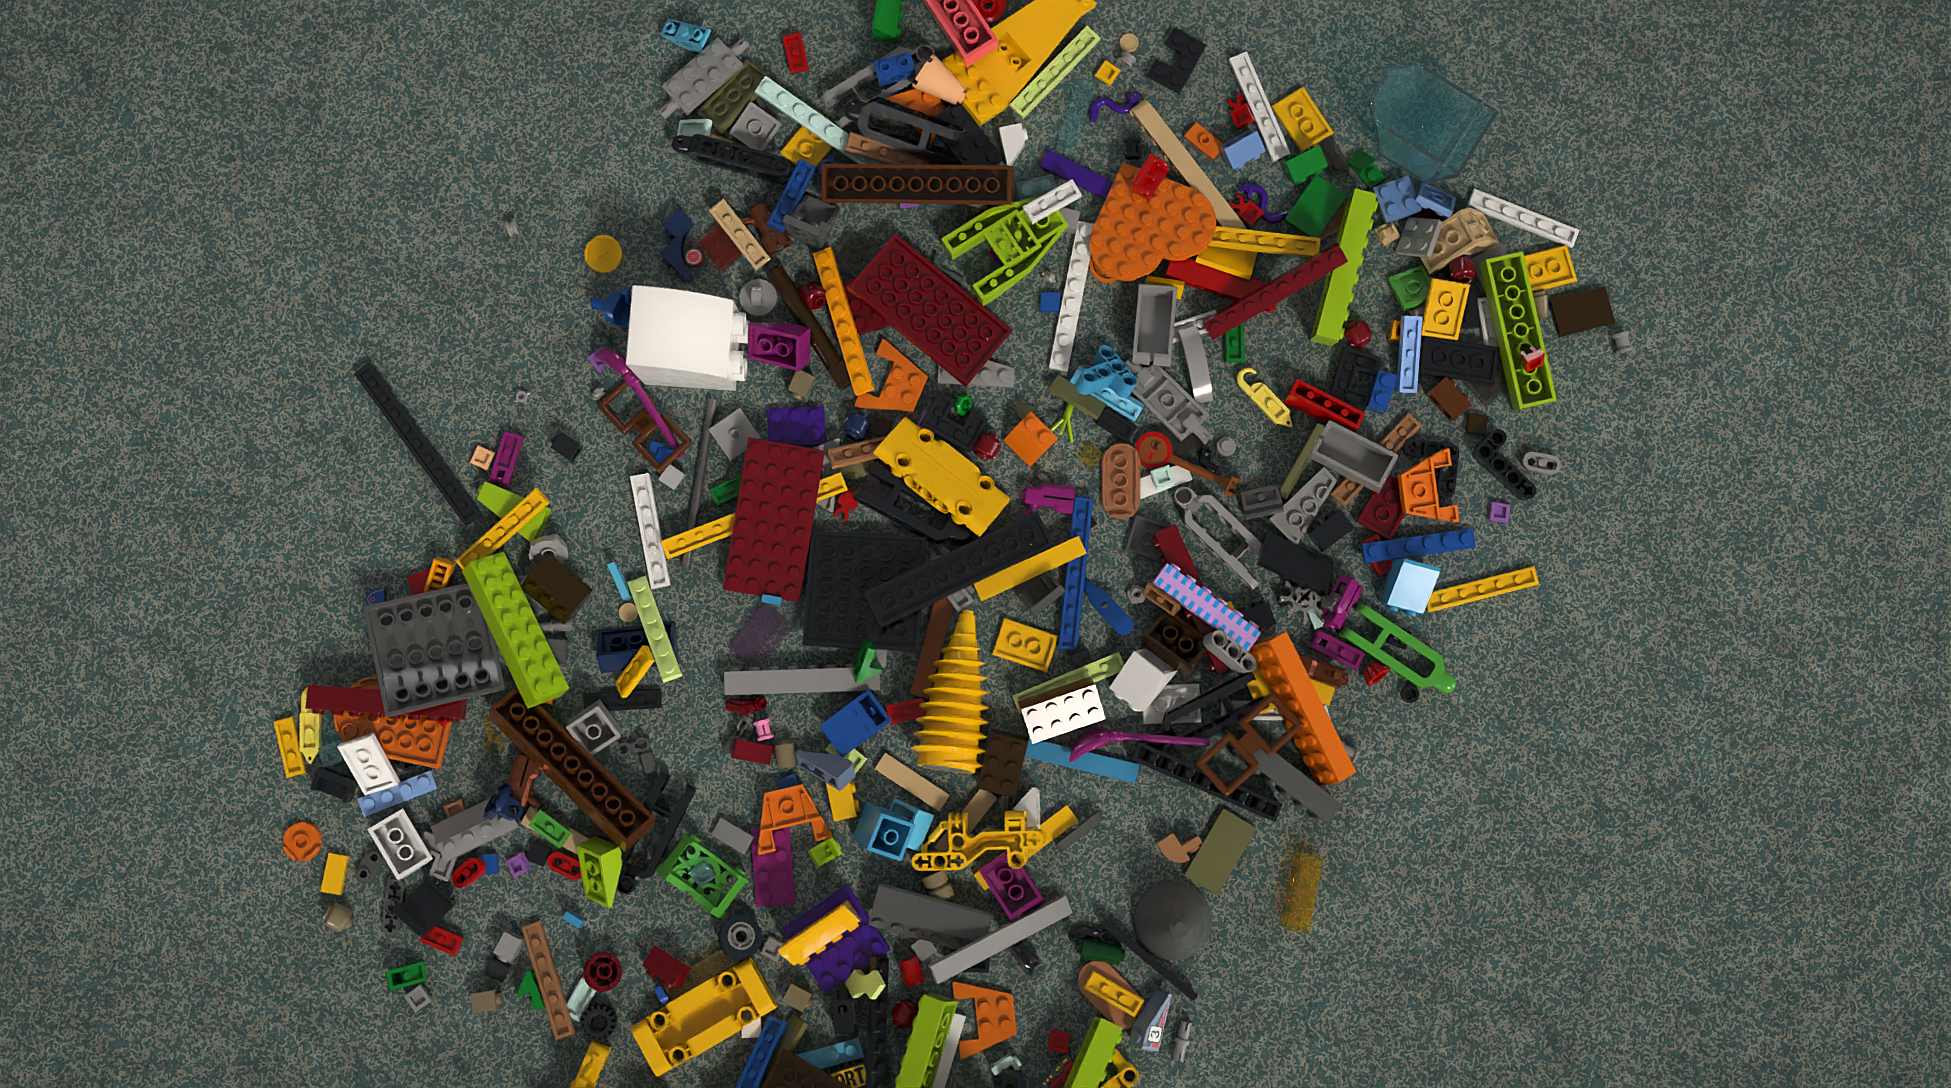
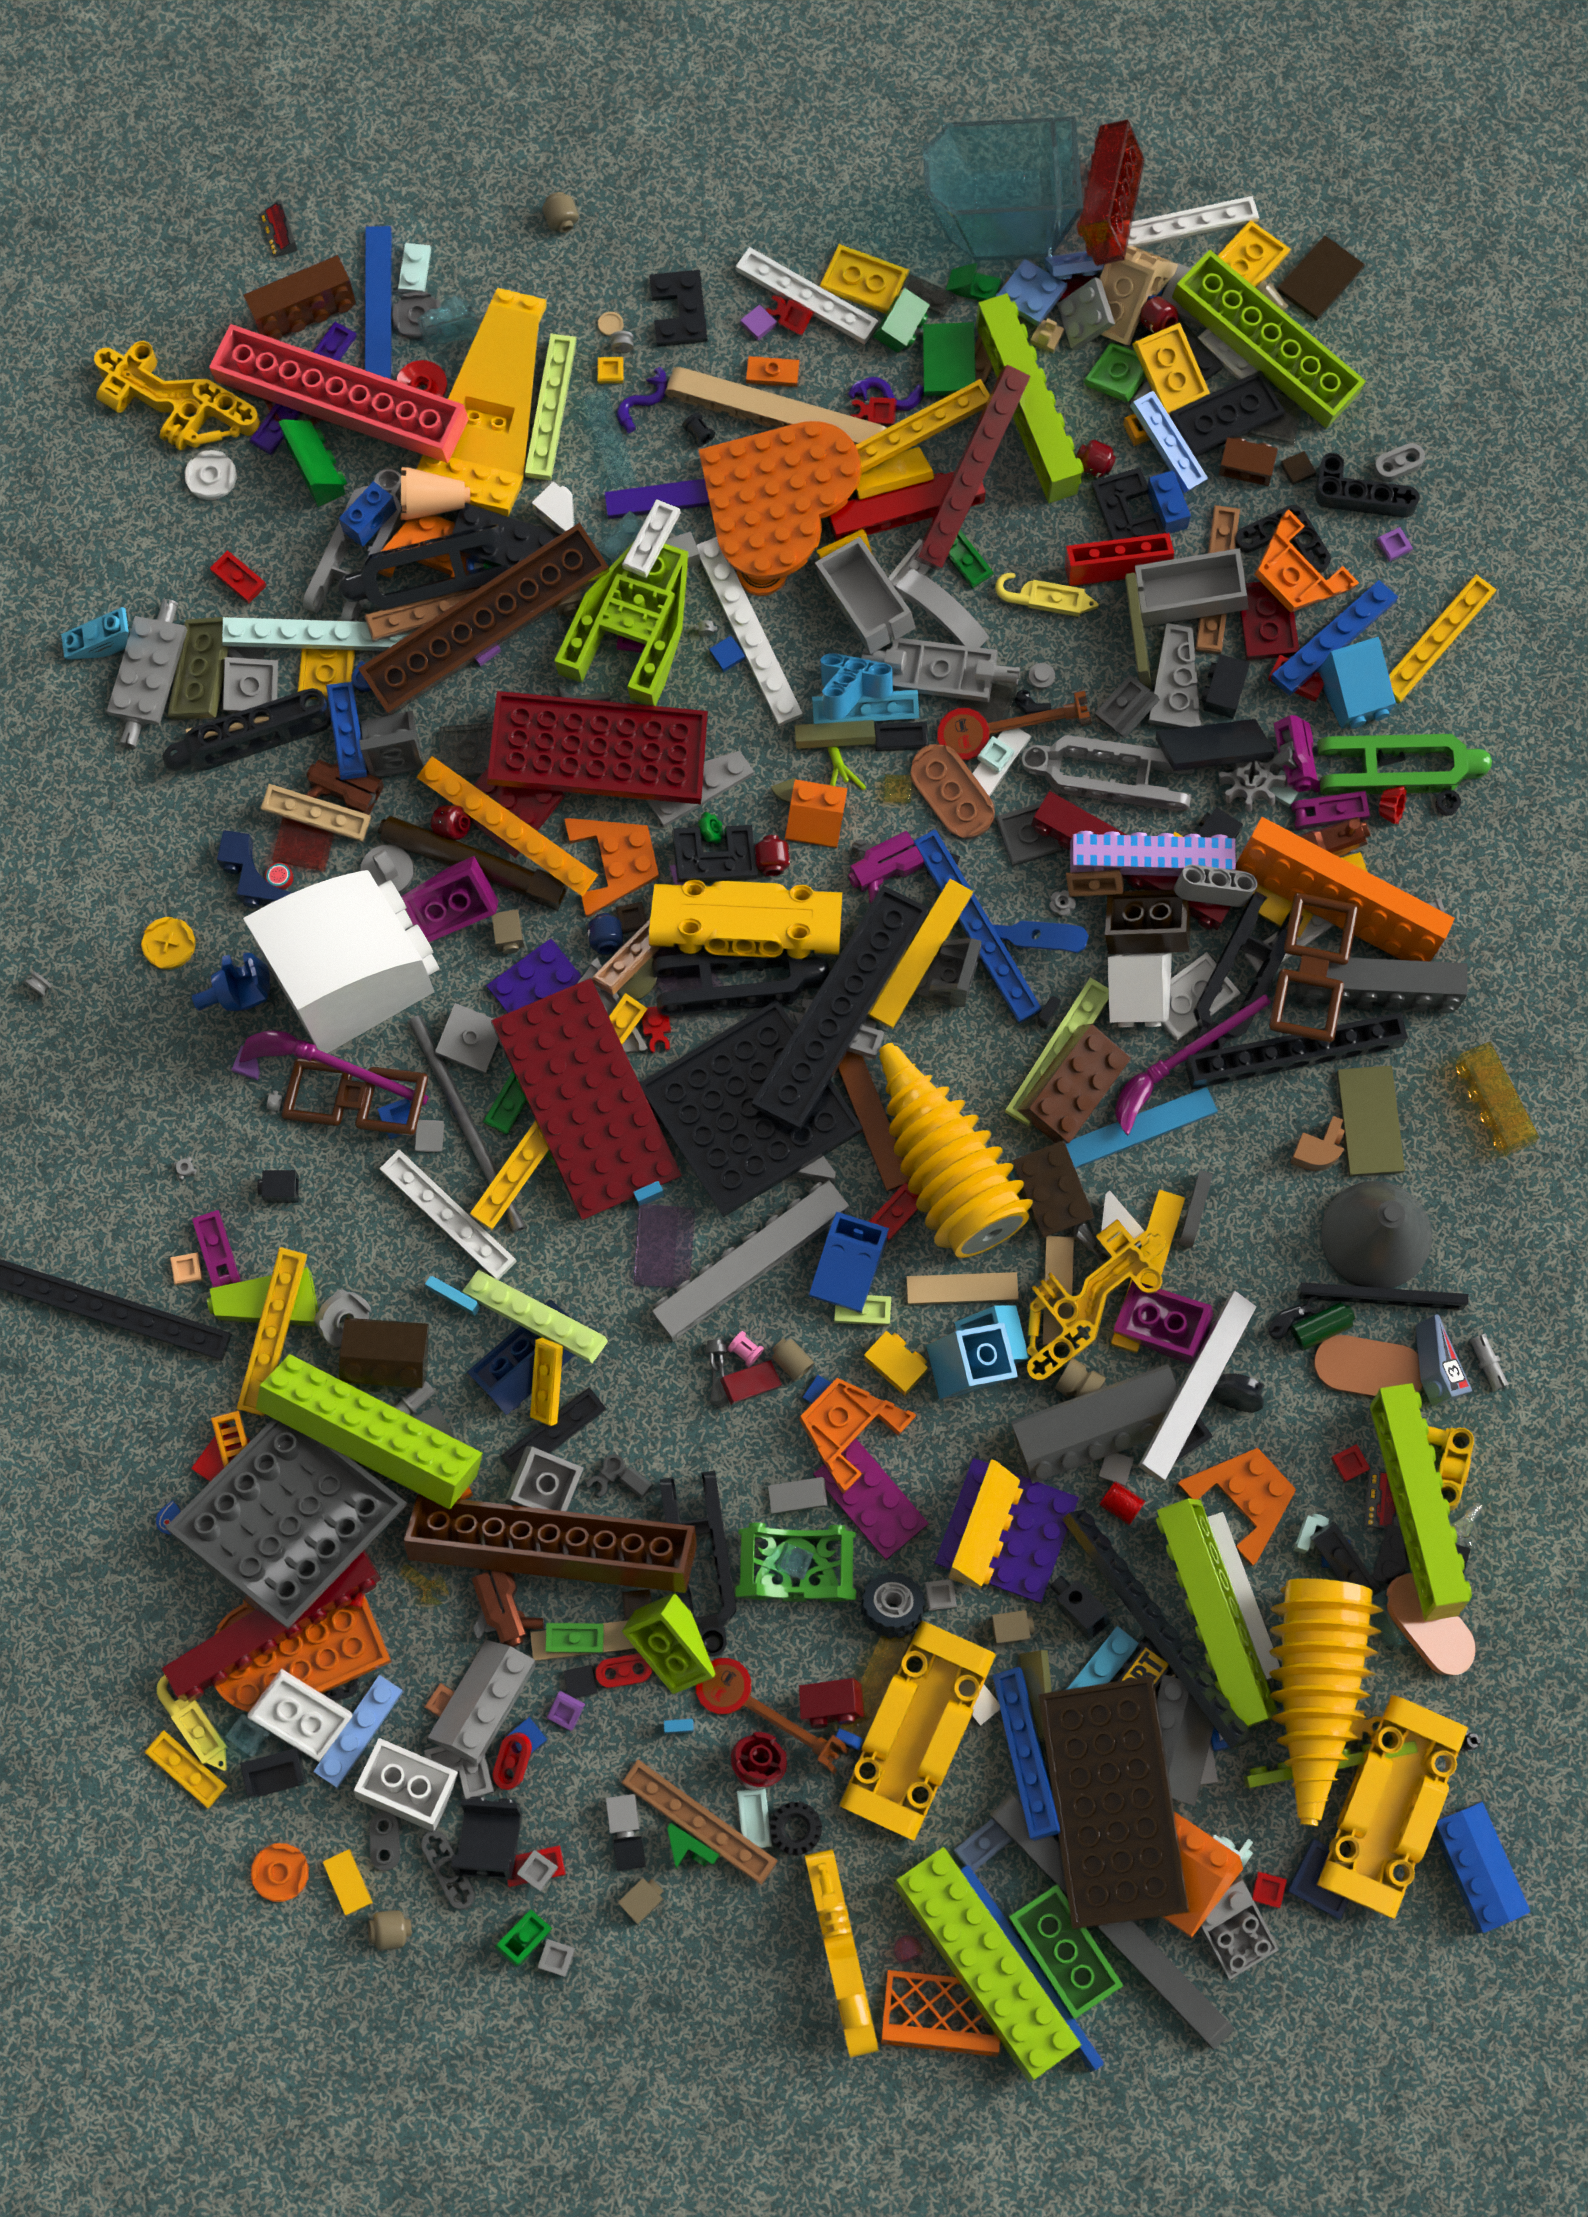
camera: 30 degrees left, 10 degrees down
(439, 944) = (537, 1870): none -> light grey plate
(499, 804) = (495, 1643): dark blue tile -> none
(618, 920) = (732, 1690): none -> dark orange piece
(628, 612) = (487, 1327): tan piece -> none
(694, 126) = (177, 730): light aqua tile -> none
(746, 706) = (704, 1335): dark red plant -> none
(825, 852) = (920, 1437): lime bracket -> none
(827, 767) = (854, 1335): sand blue slope -> none
(865, 664) = (811, 1186): green slope -> none
(869, 984) = (1072, 1558): yellowish green tile -> none
(904, 1013) = (1150, 1558): dark red head -> none
(1025, 645) = (978, 1045): yellow tile -> none
(1113, 993) = (1372, 1362): yellow tile -> none
(1150, 177) = (742, 440): red hinge -> none
(1218, 103) = (758, 322): none -> medium lavender tile
(1242, 149) = (821, 350): medium blue brick -> none
(1489, 172) = (1111, 193): none -> clear red brick
(1532, 360) = (1308, 352): red tile -> none
(1622, 342) = (1388, 279): light grey bush -> none

